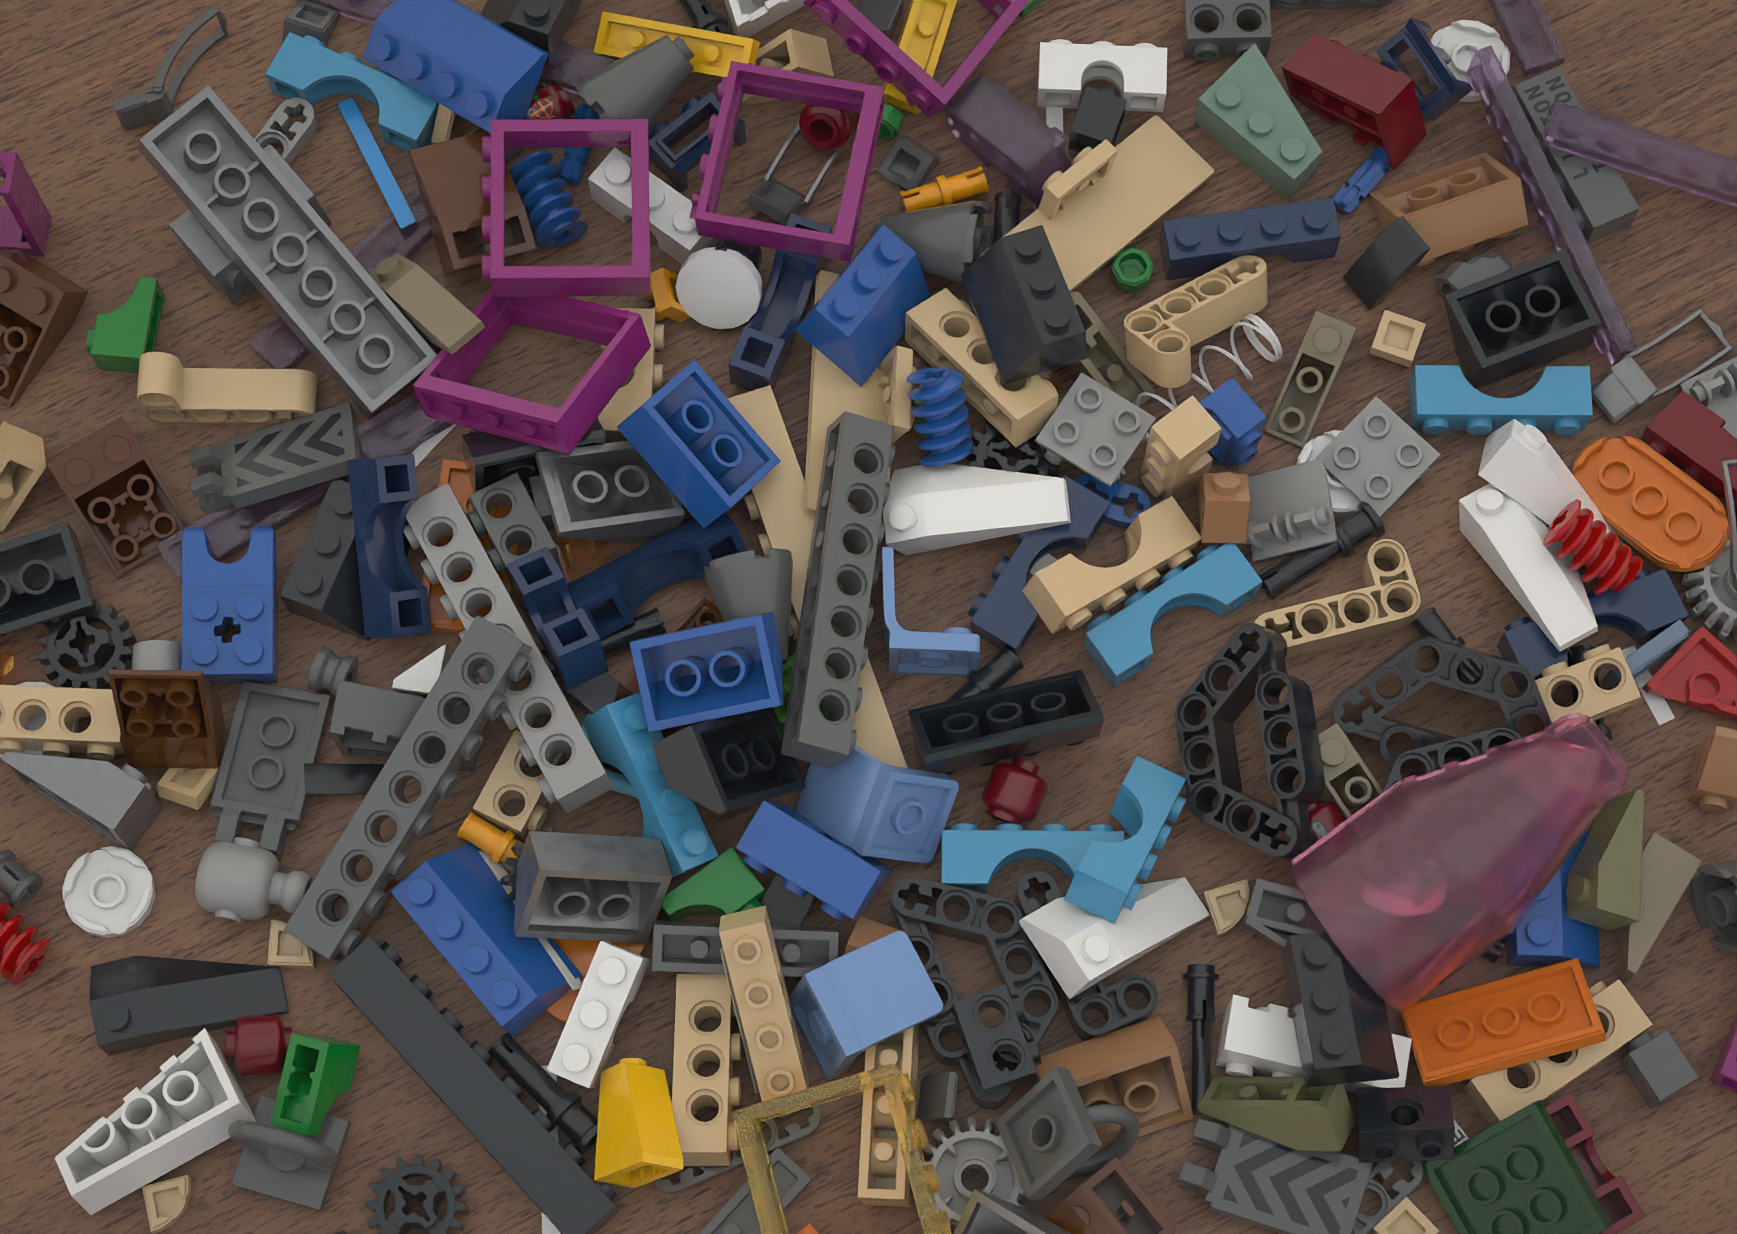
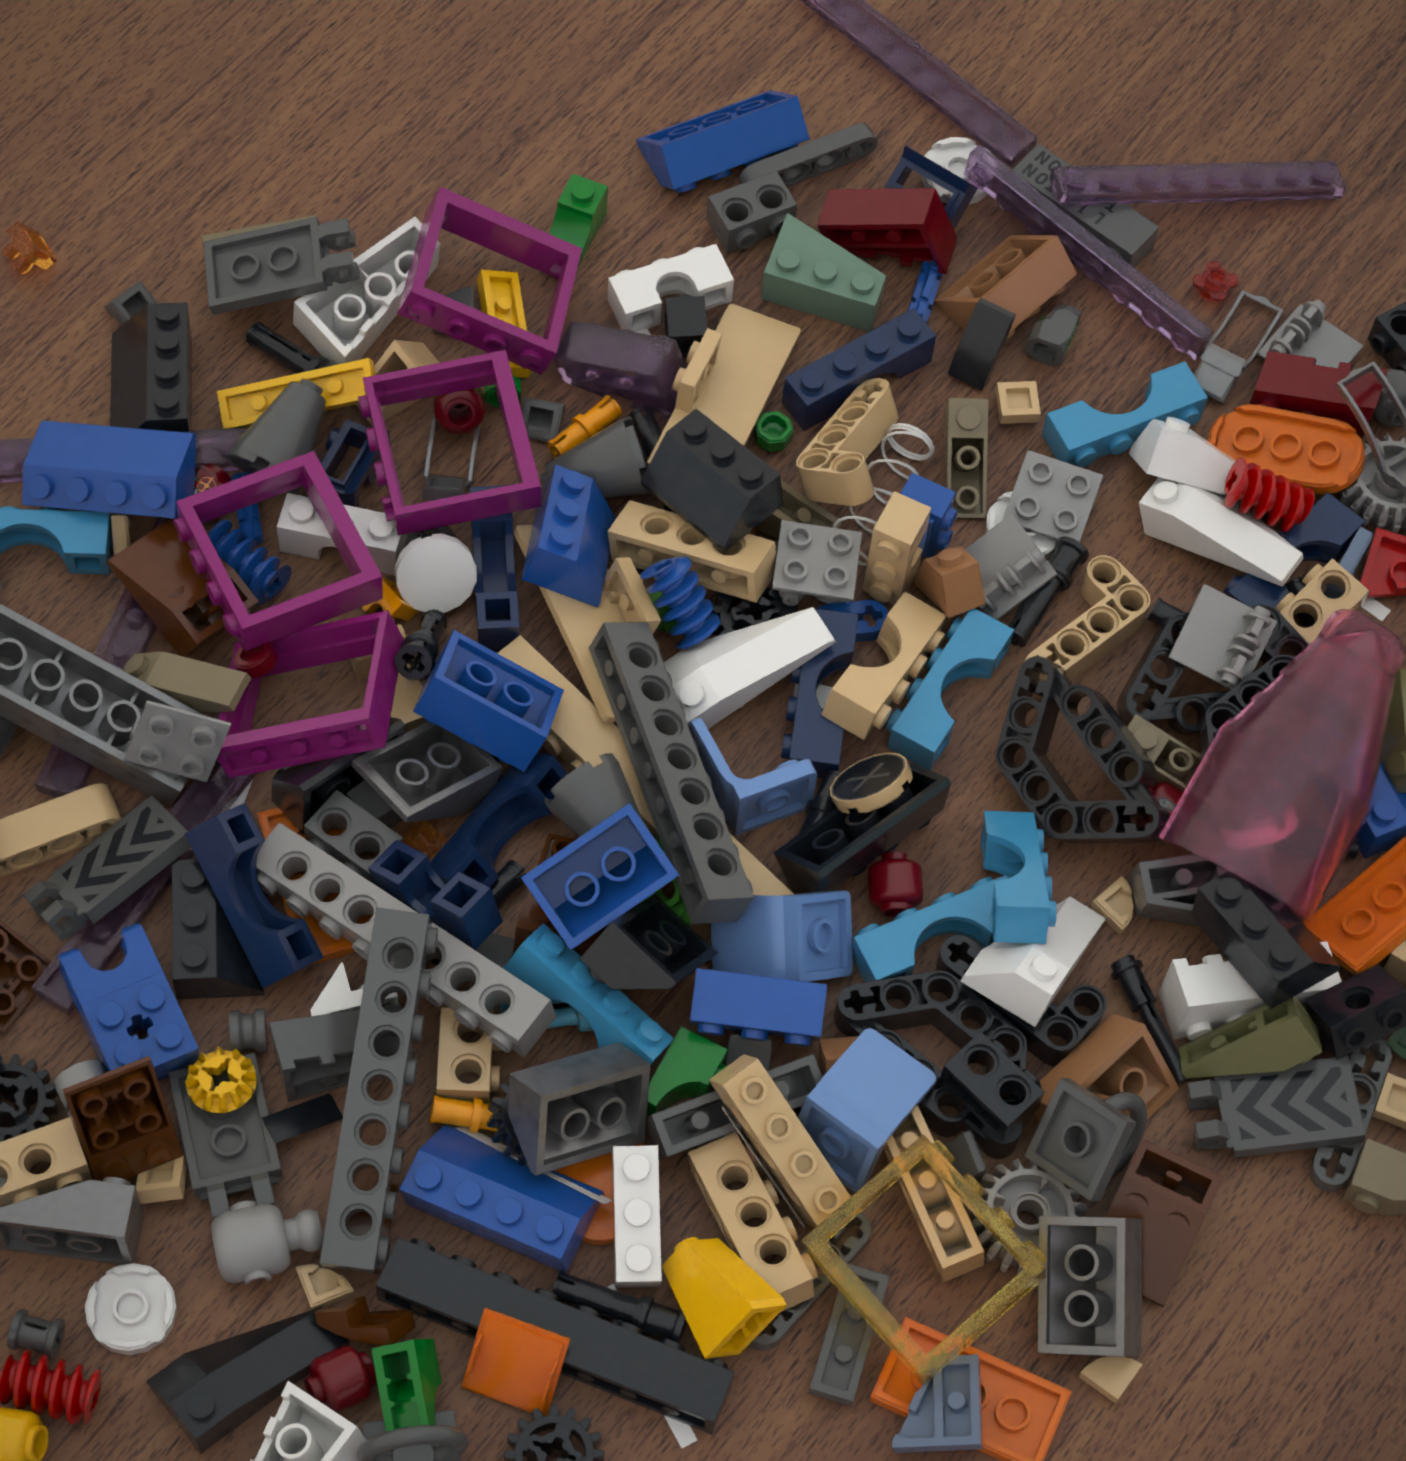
camera: 30 degrees left, 10 degrees down
(282, 729) = (227, 1095): none -> yellow gear
(310, 1009) = (363, 1326): none -> reddish brown slope
(376, 162) = (74, 590): dark azure sticker -> none
(379, 365) = (176, 741): none -> light grey hinge
(421, 1102) = (515, 1362): none -> orange piece
(501, 311) = (257, 660): none -> dark red tile
(670, 360) = (425, 643): none -> black pin
(1033, 682) = (871, 783): none -> tile
(1460, 684) = (1222, 637): none -> light grey hinge
(1520, 319) = (1111, 346): black slope -> none
(1666, 296) = (1211, 289): none -> clear red plate

